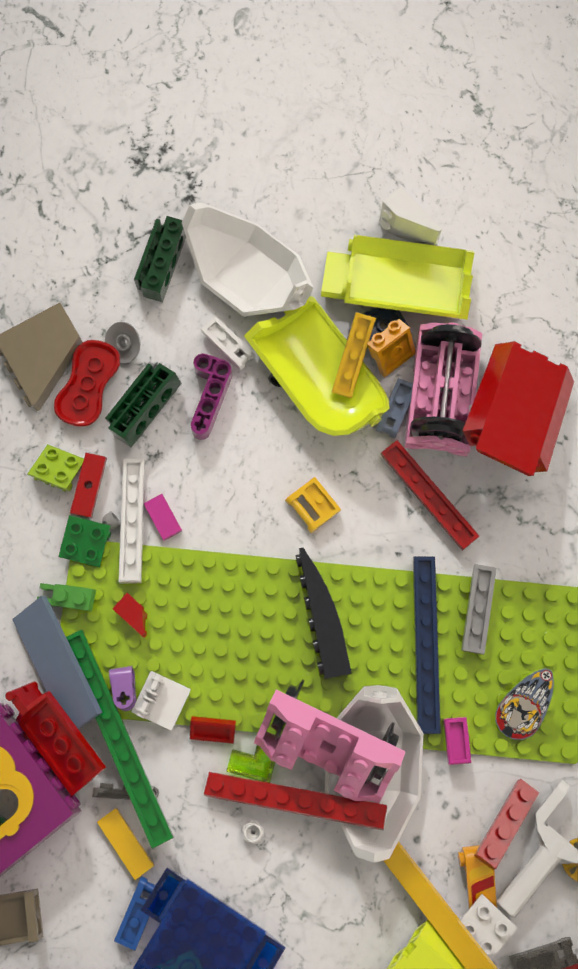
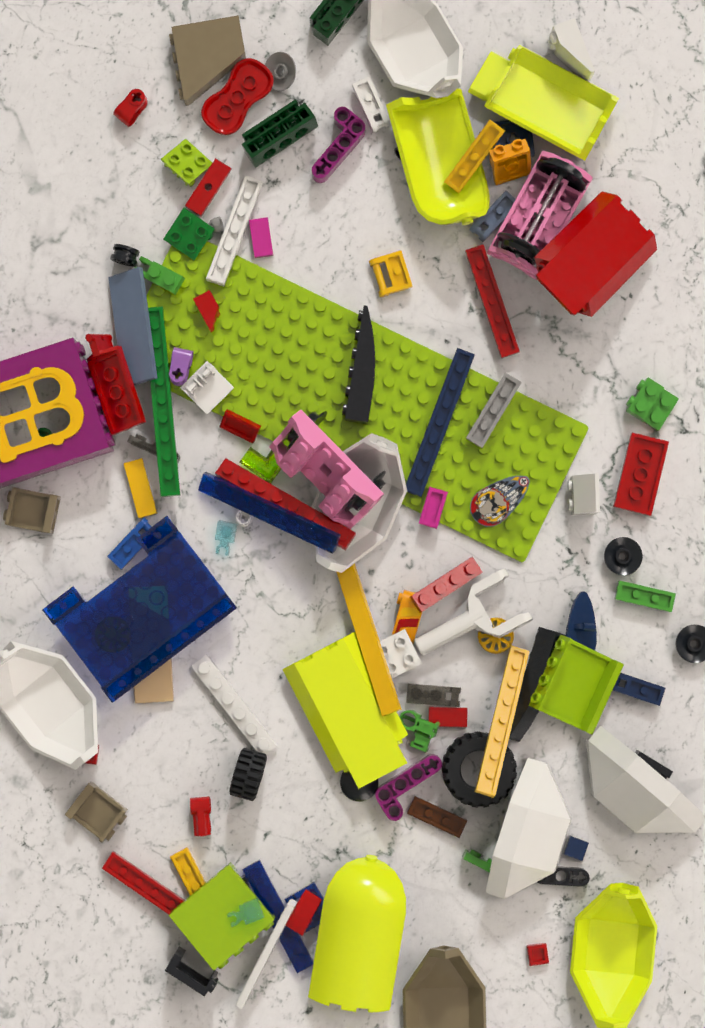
camera: 20 degrees right, 10 degrees up
(22, 589) = (124, 255): none -> black wheel
(240, 860) = (225, 534): none -> clear light blue plate
(282, 818) = (269, 512): none -> clear blue plate

